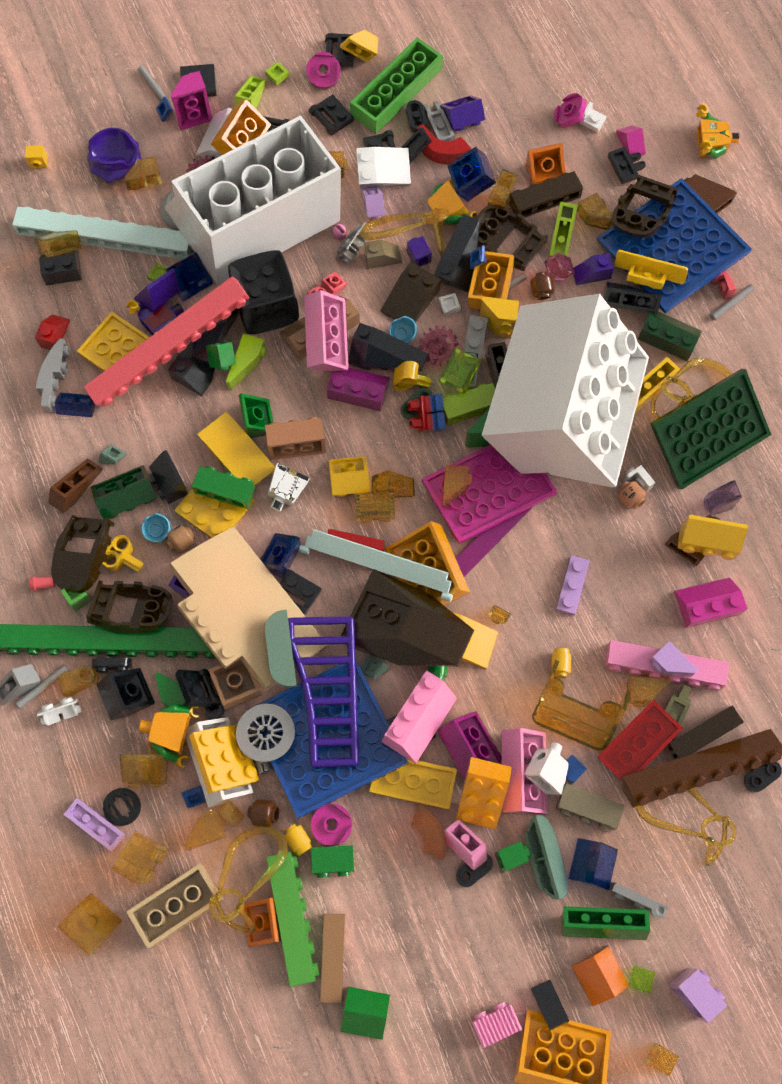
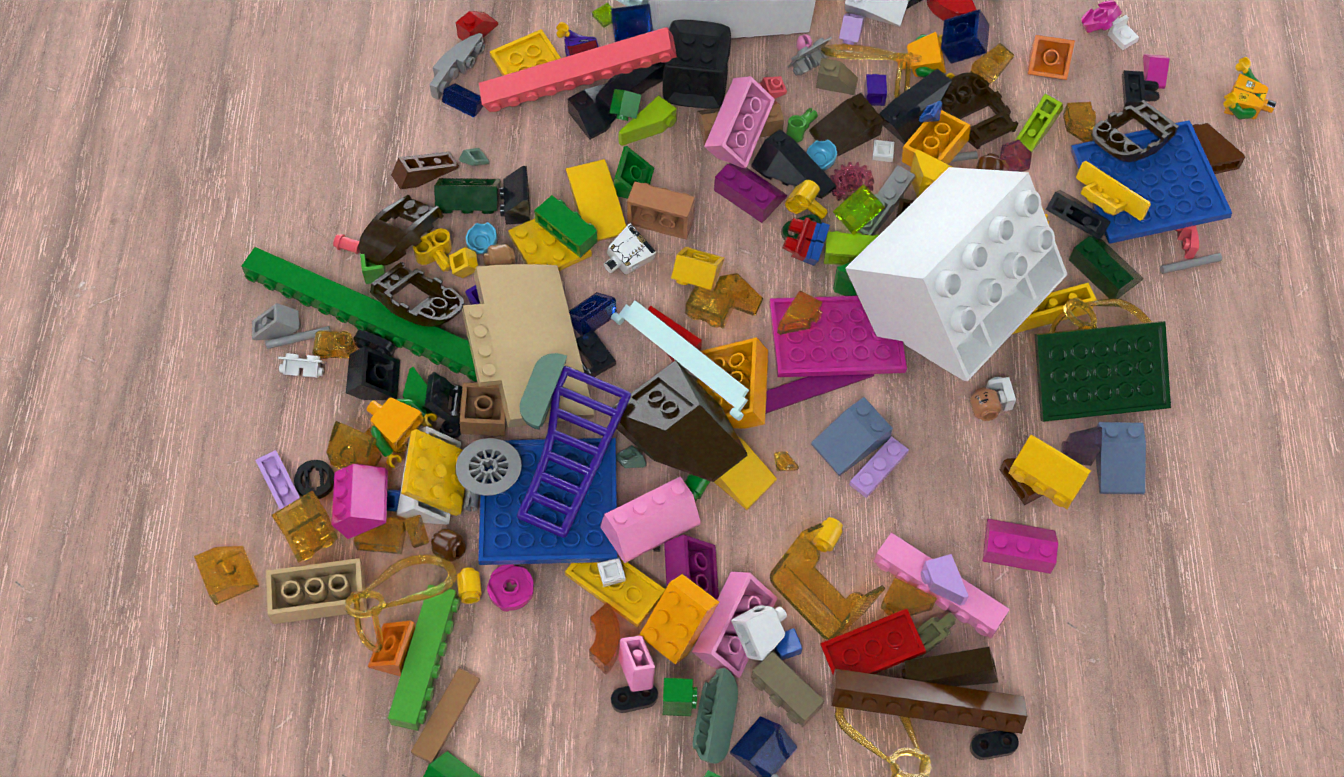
camera: 25 degrees right, 10 degrees down
(152, 557) = (463, 262): none -> yellow plate
(159, 291) = (595, 24): dark purple slope -> none
(172, 811) = (359, 499): none -> dark pink slope
(332, 860) = (493, 620): green brick -> none
(371, 310) = (799, 124): none -> bright green pin
(407, 775) = (611, 572): none -> white tile
(541, 569) = (852, 436): none -> sand blue slope
(546, 194) = (1032, 85): dark brown brick -> none
(594, 269) = (1053, 174): dark purple slope -> none
(757, 492) = (1122, 458): none -> sand blue slope

